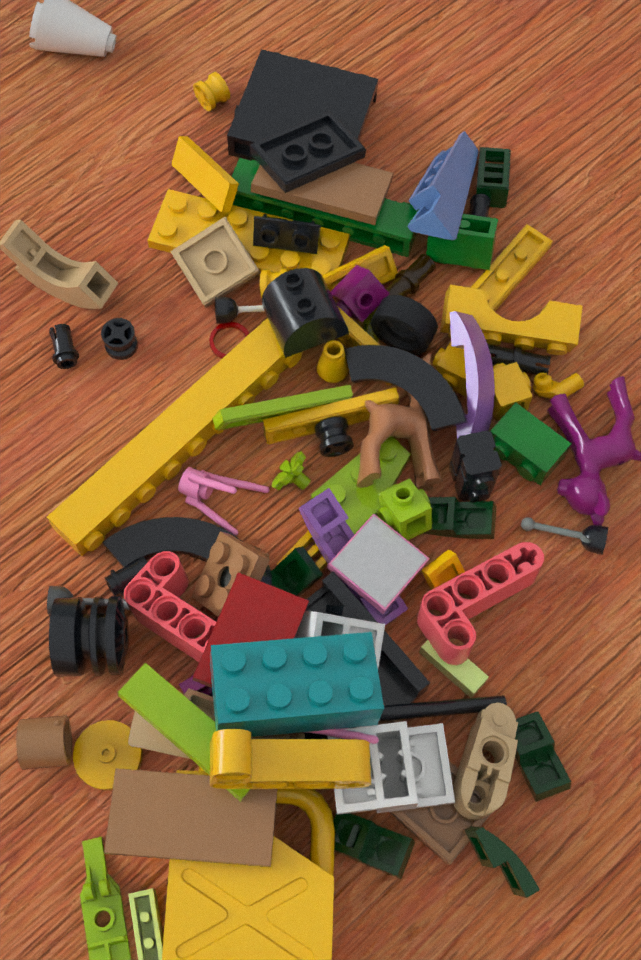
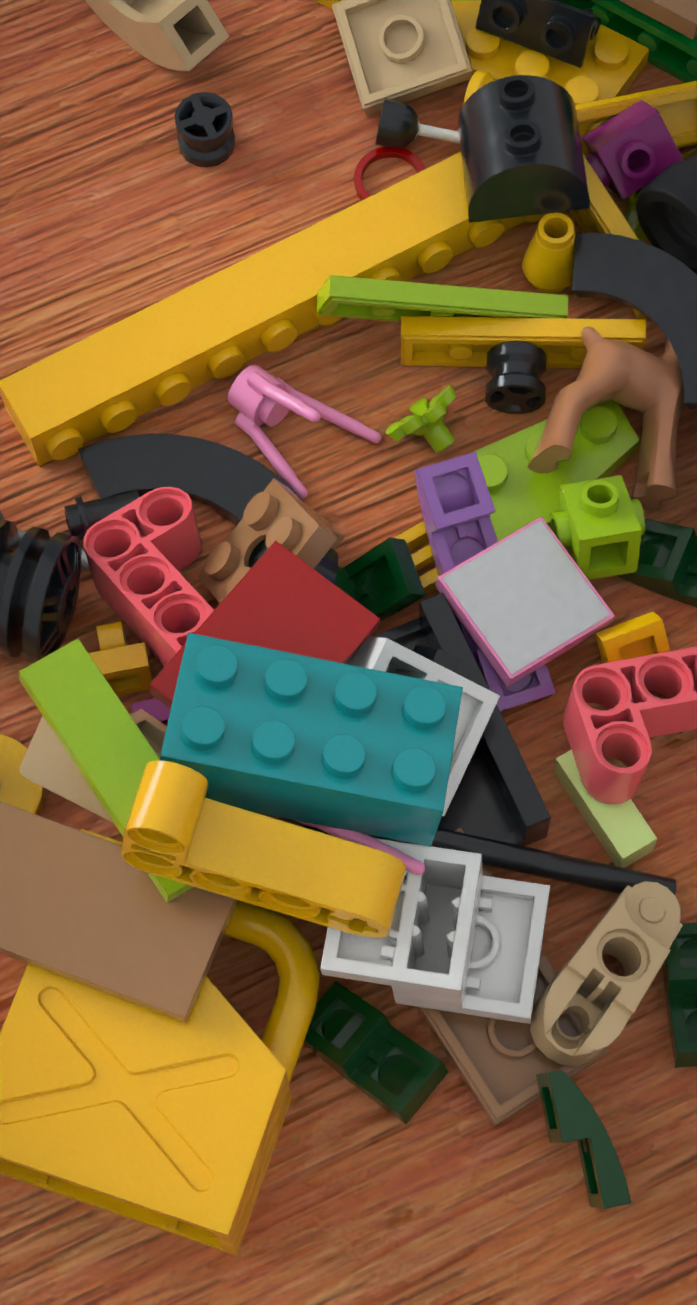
camera: 20 degrees right, 0 degrees up
(63, 347) = (109, 121): black pin -> none
(164, 662) = (121, 664): none -> yellow tile

